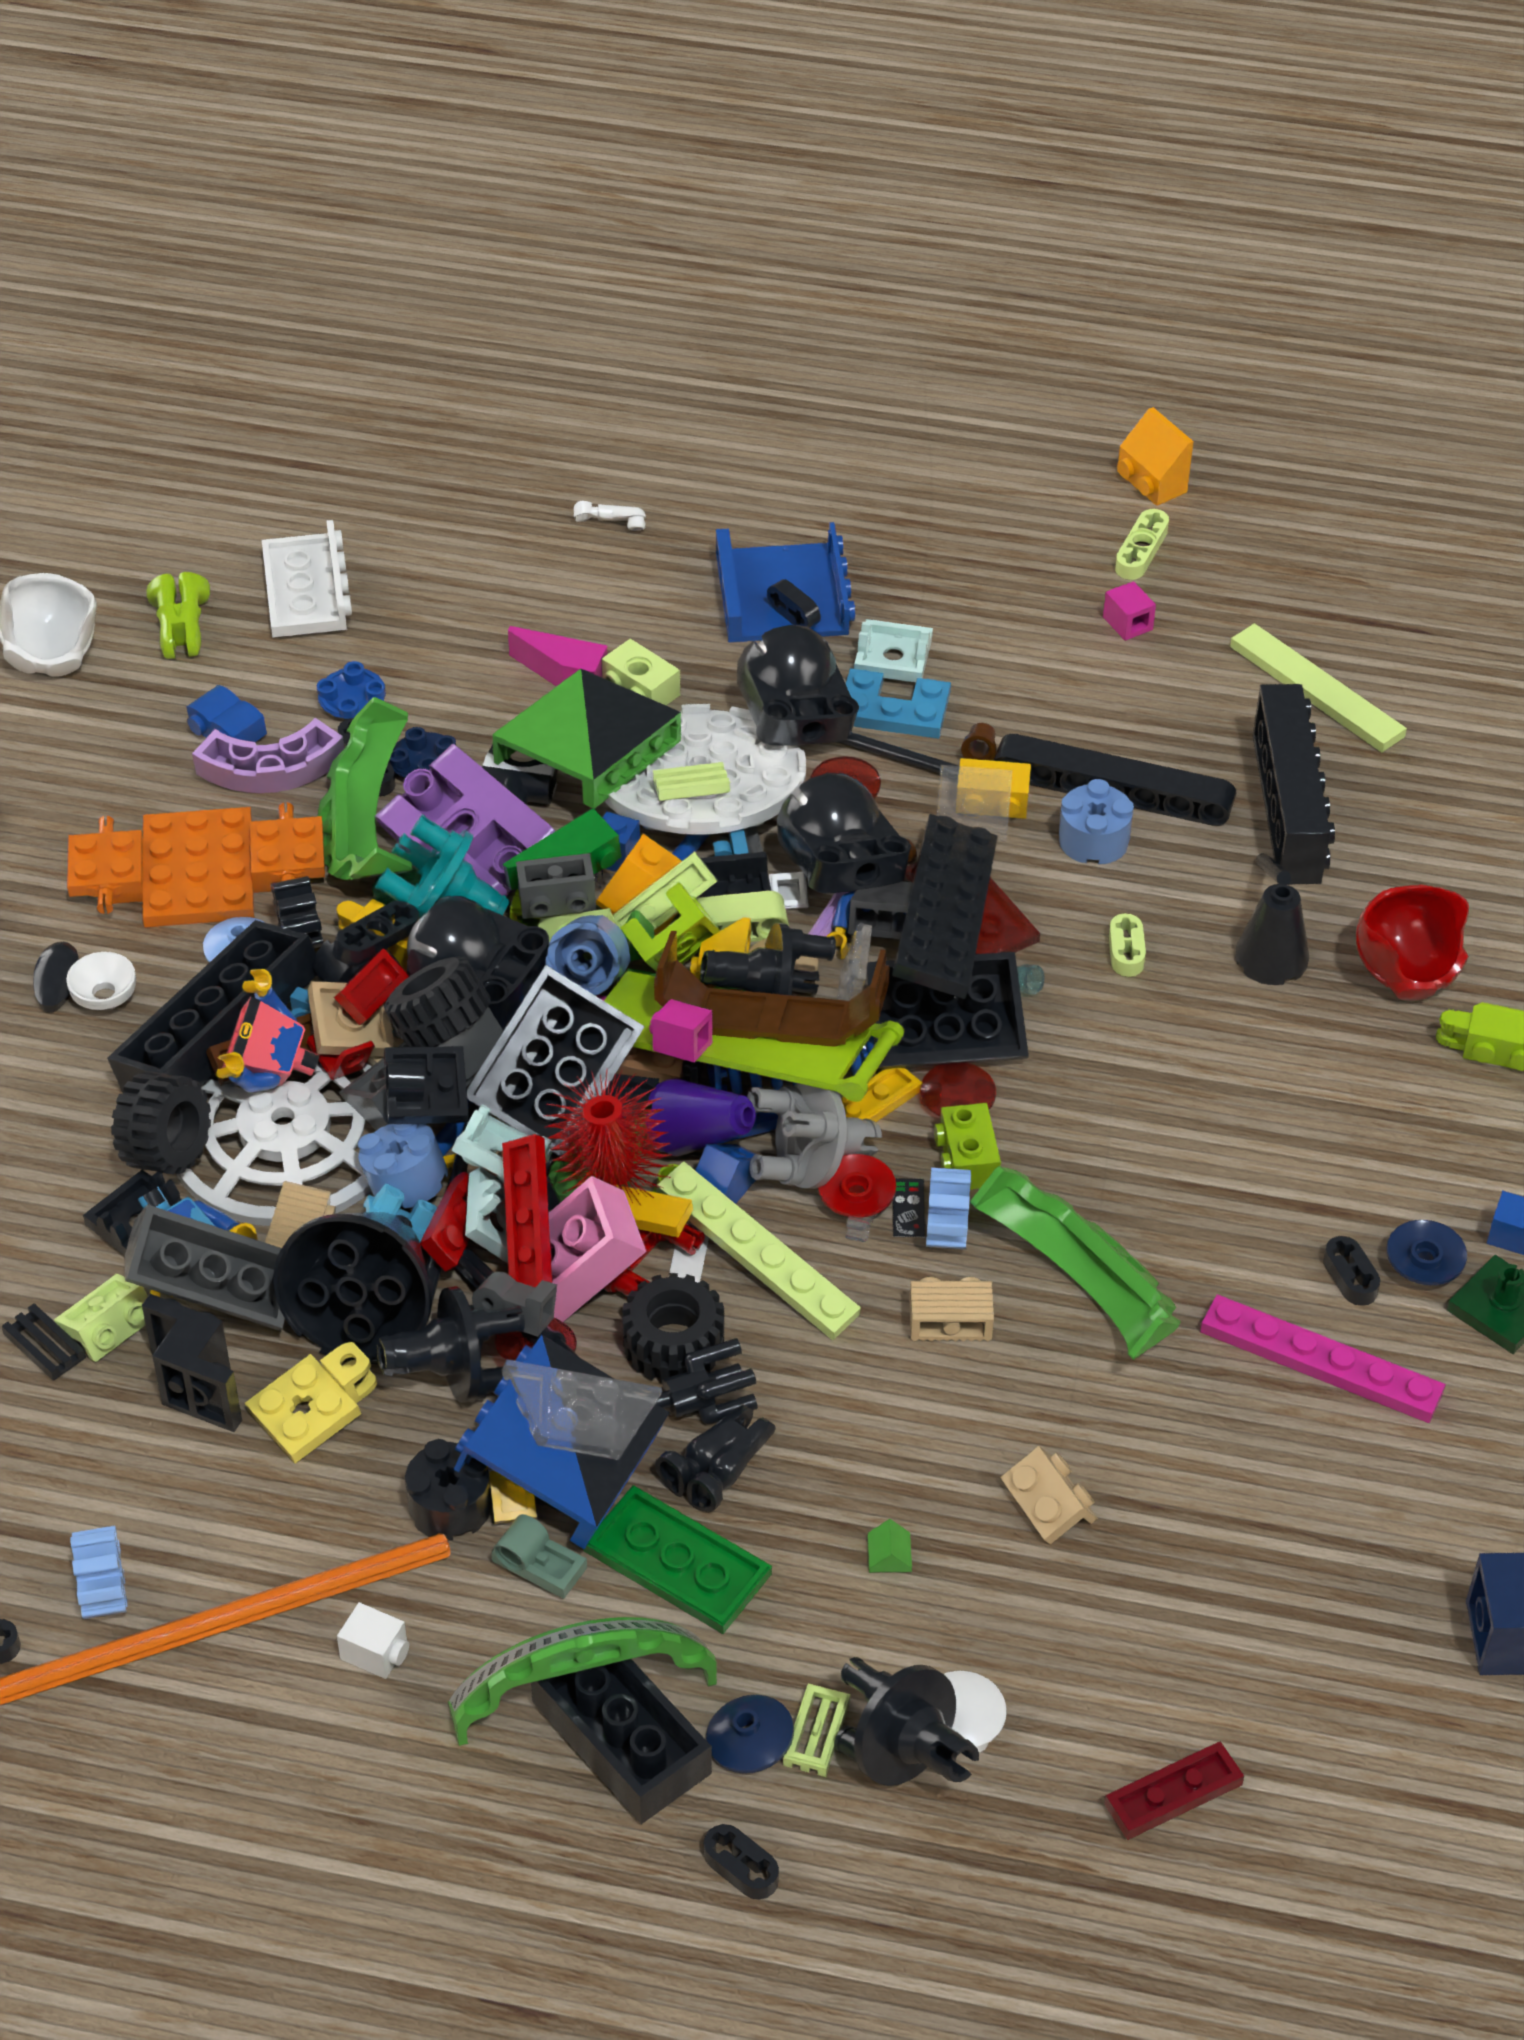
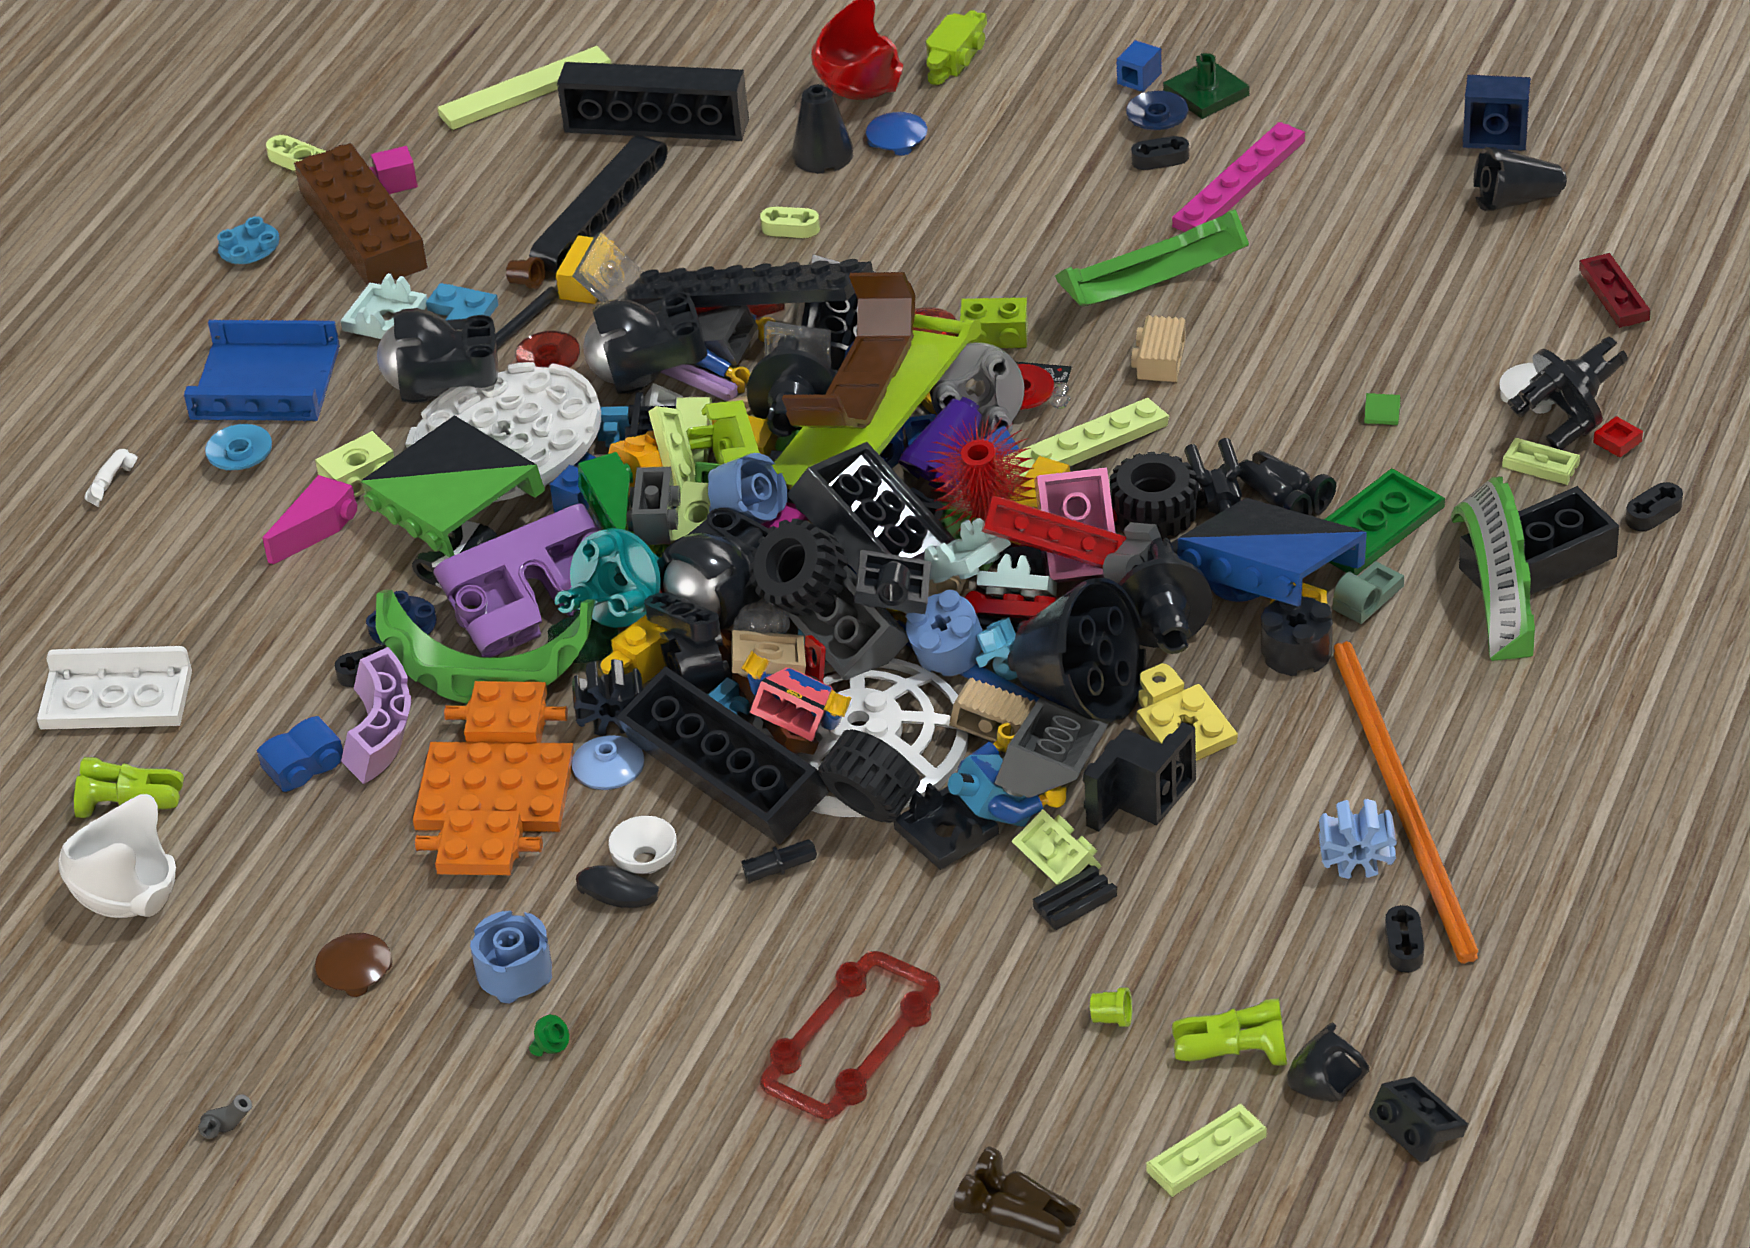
camera: 75 degrees left, 5 degrees down
(89, 1090) = (778, 860): none -> black axle
(349, 690) = (291, 666): blue dish -> none
(371, 986) = (748, 627): red tile -> none
(373, 1641) = (1437, 688): white brick -> none
(580, 1409) = (1257, 522): clear wing -> none
(659, 589) = (238, 447): none -> dark azure dish
(681, 1030) = (881, 417): dark pink brick -> none
(691, 781) = (525, 424): yellowish green tile -> none
(755, 1746) = (1527, 484): dark blue dish -> none
(793, 604) = (303, 361): black beam -> none
(867, 1809) = (1618, 436): none -> red plate
(948, 1208) = (1066, 331): light blue gear -> none
(988, 531) = (248, 241): none -> dark azure dish
(1039, 599) = (360, 215): none -> reddish brown brick
(1047, 1493) = (1348, 320): tan bracket -> none
(1095, 823) = (653, 215): medium blue brick -> none
(1156, 458) = (210, 123): light orange slope -> none
(1273, 869) = (759, 114): black bar -> none
(1324, 1014) = (896, 132): none -> blue dish
(1371, 1652) = (1514, 179): none -> black cone

